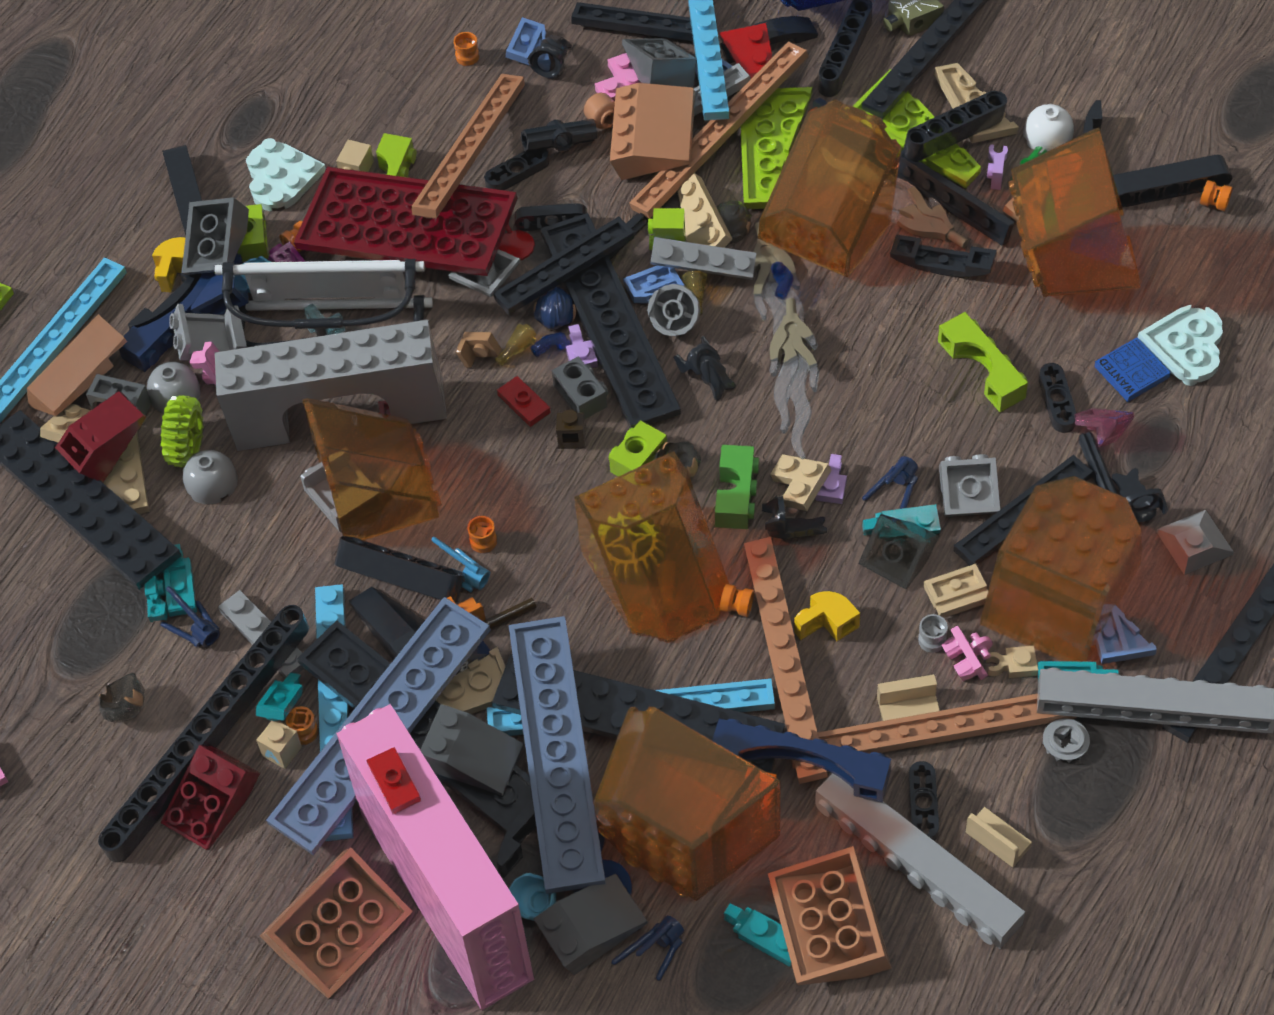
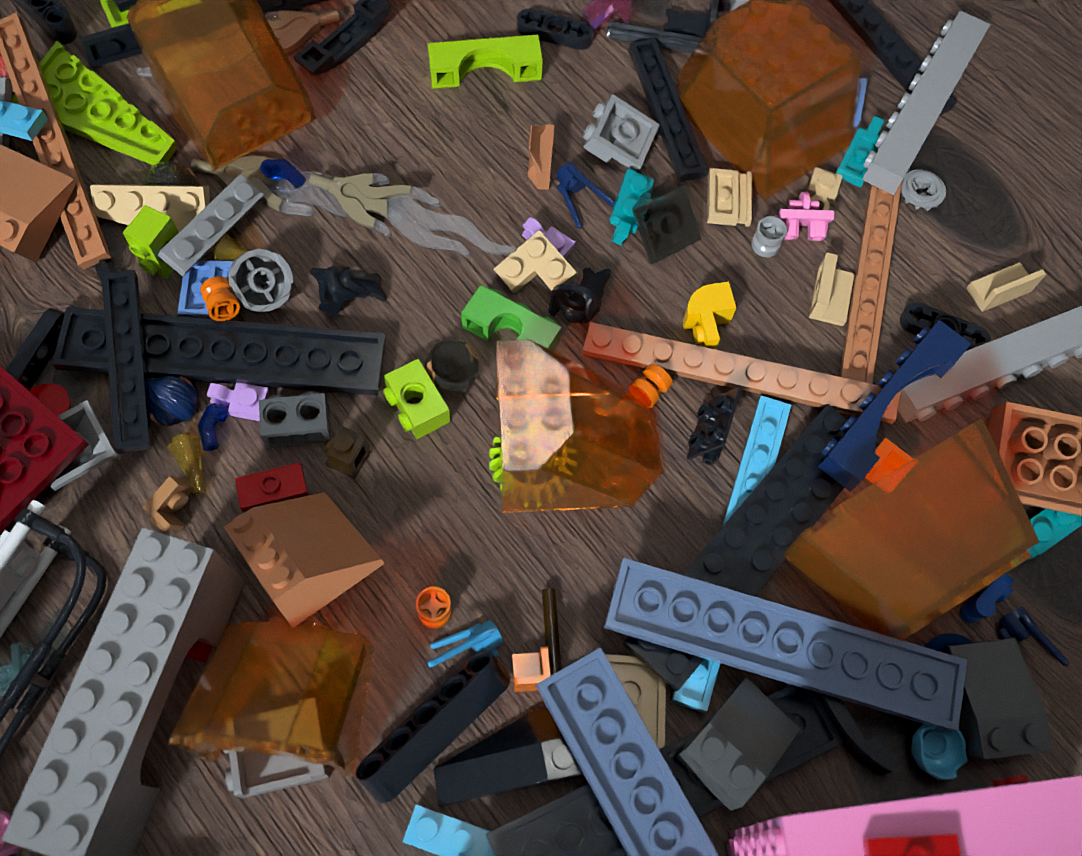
camera: 75 degrees left, 10 degrees up
(474, 429) = (303, 552): none -> nougat slope
(640, 294) = (219, 300): none -> orange wheel
(684, 901) = (982, 602): none -> blue plate
(708, 649) = (713, 427): none -> black hinge
(911, 437) = (540, 155): none -> nougat slope

